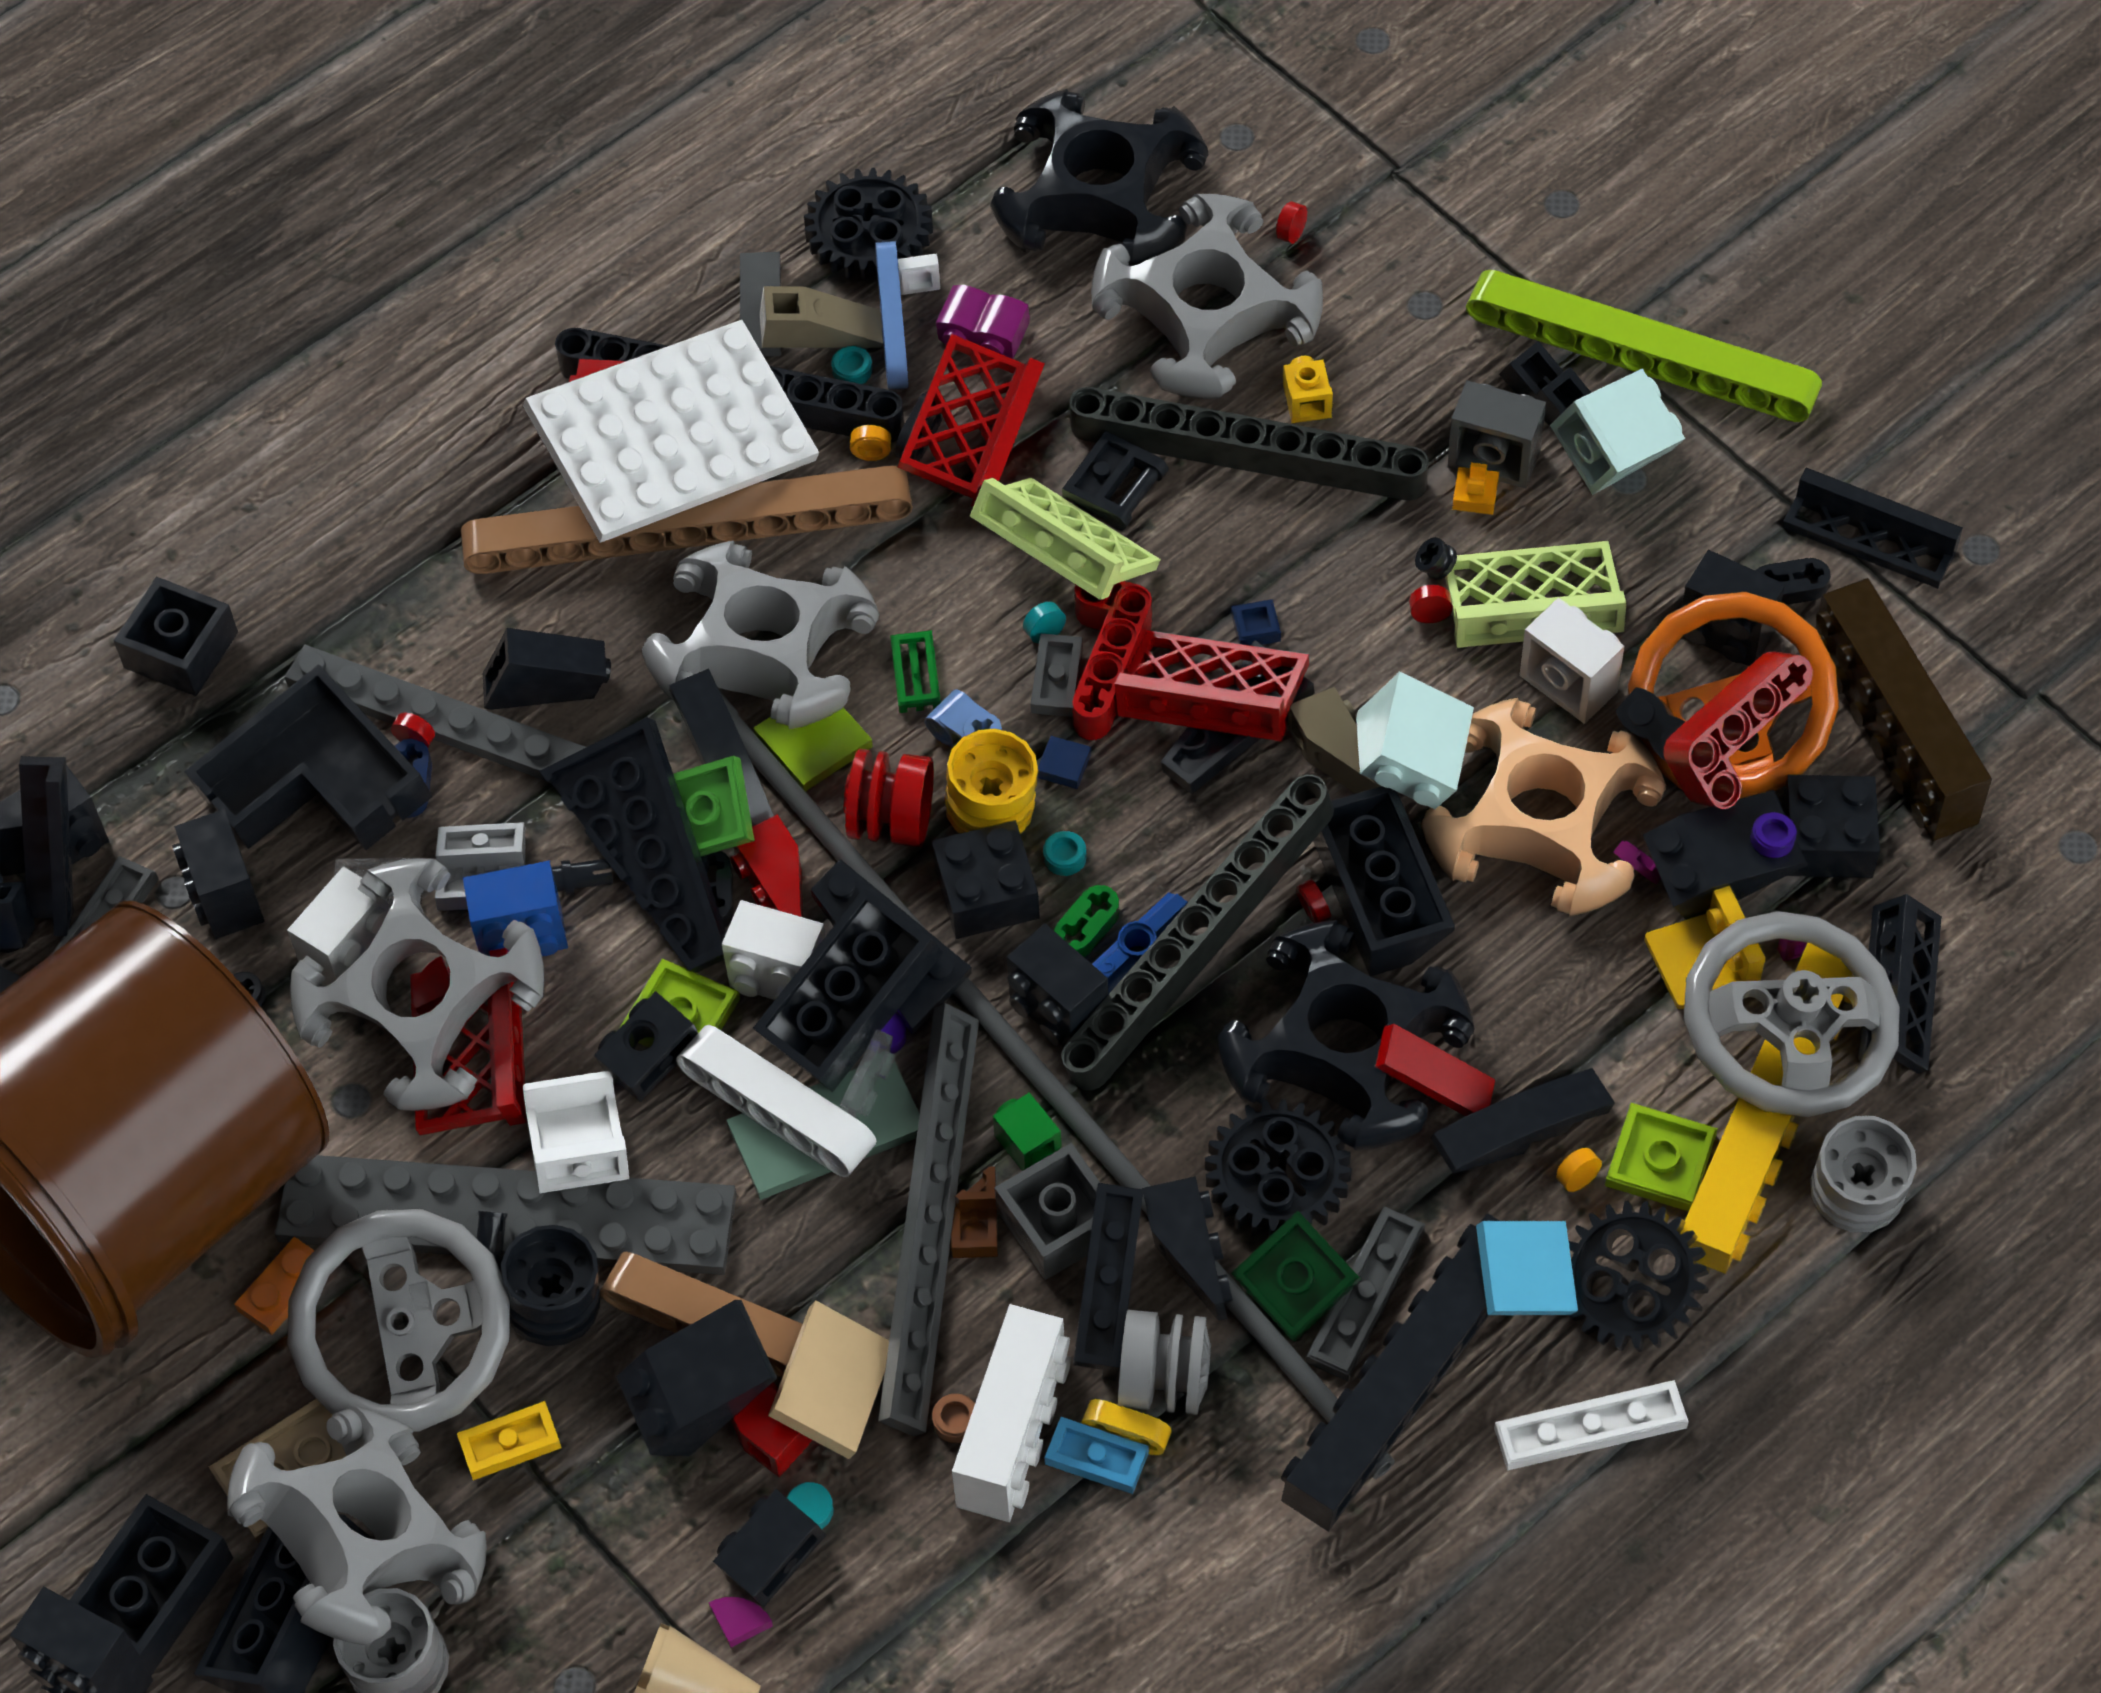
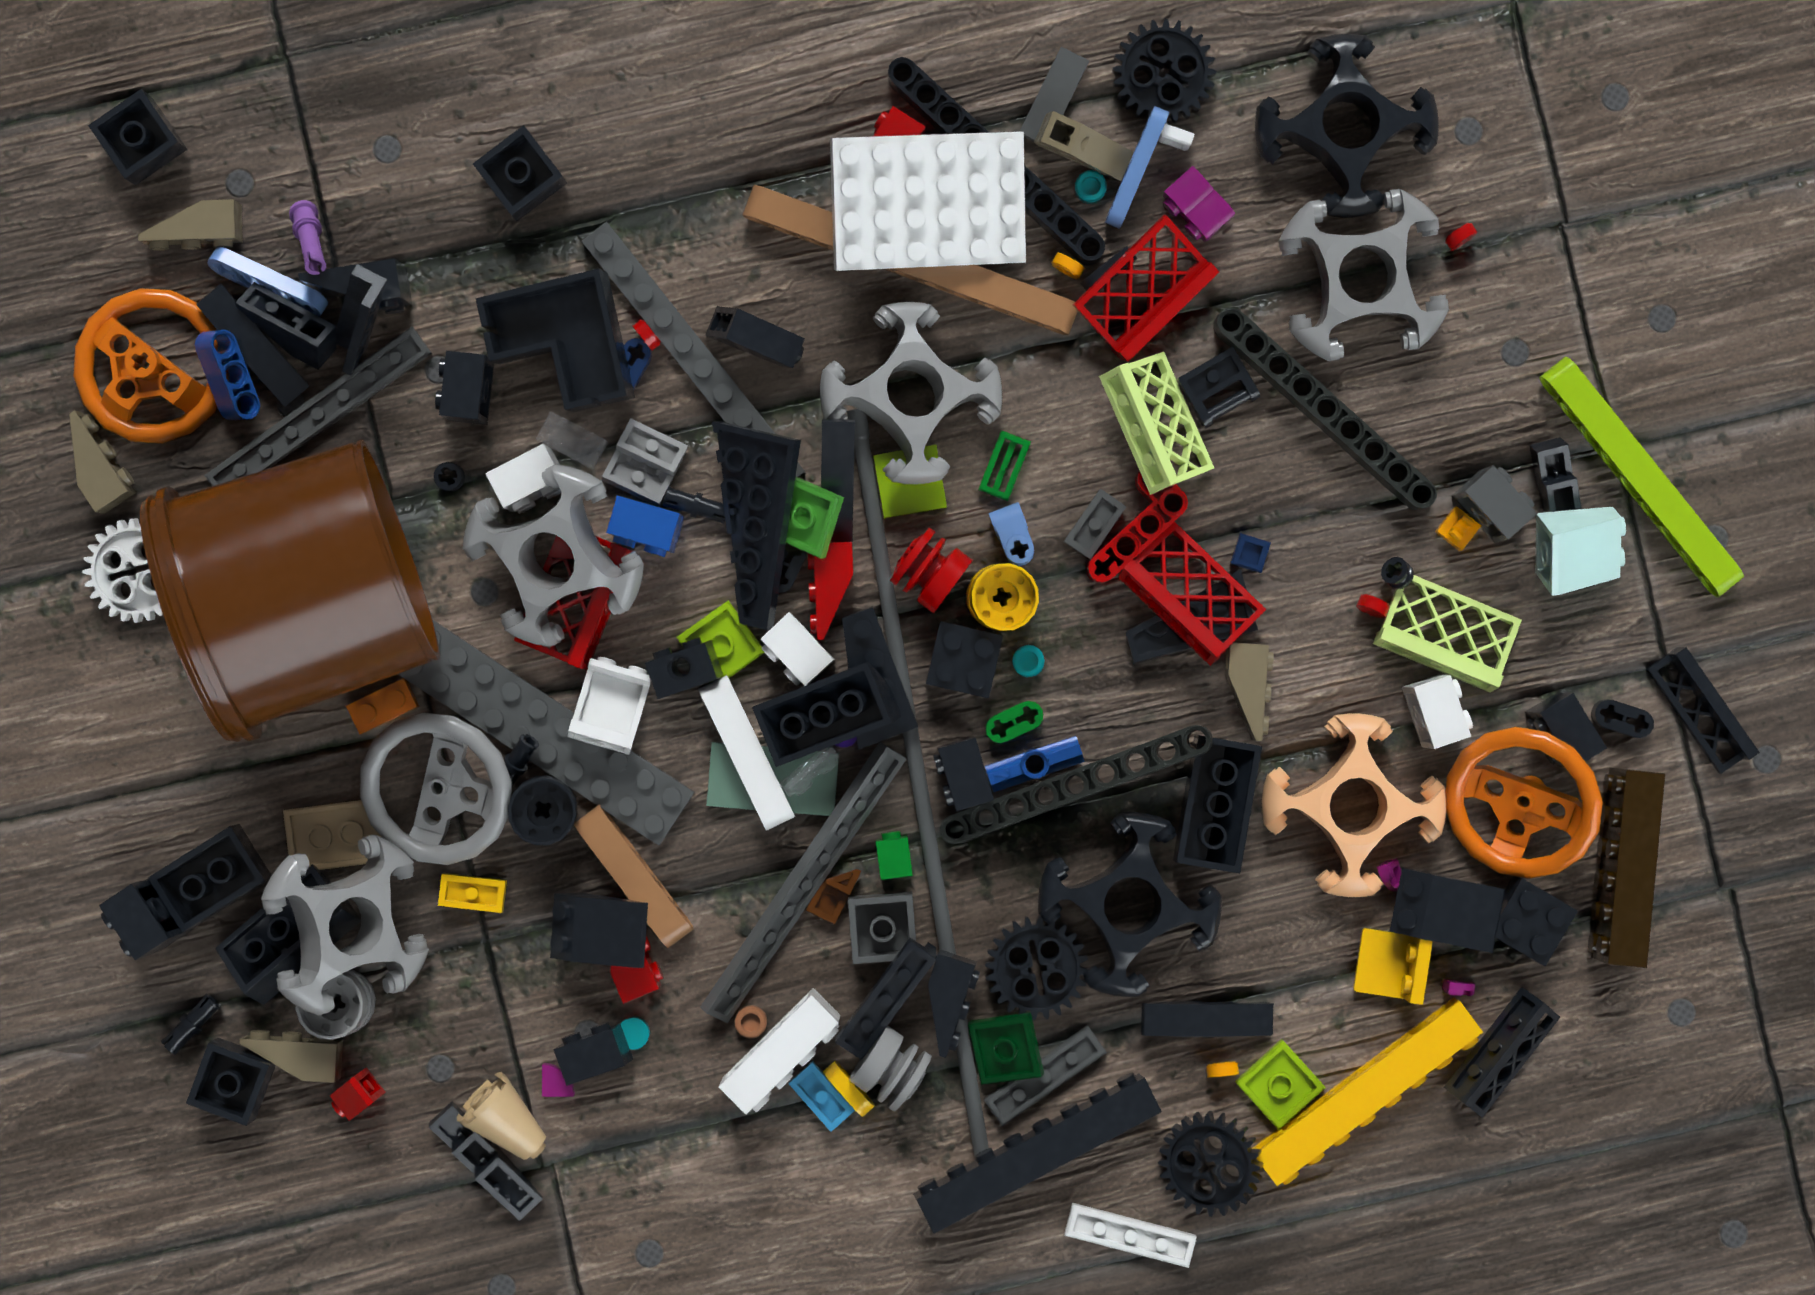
camera: 30 degrees right, 30 degrees up
(831, 1380) = (683, 968): tan tile -> none
(1044, 619) = (1108, 478): teal tile -> none
(1064, 762) = (1064, 592): dark blue tile -> none
(1307, 382) = (1382, 393): yellow brick -> none
(1313, 901) = (1165, 789): red tile -> none
(1413, 739) = (1289, 728): light aqua slope -> none
(1433, 1071) = (1168, 965): red tile -> none
(1526, 1268) = (1145, 1130): medium azure tile -> none
(1648, 718) = (1457, 798): black brick -> none
(1773, 835) = (1481, 925): dark purple tile -> none
(1774, 683) = (1505, 841): red beam -> none
(1792, 1010) = (1401, 1066): light grey piece -> none
(1868, 1152) = (1407, 1186): light grey wheel -> none

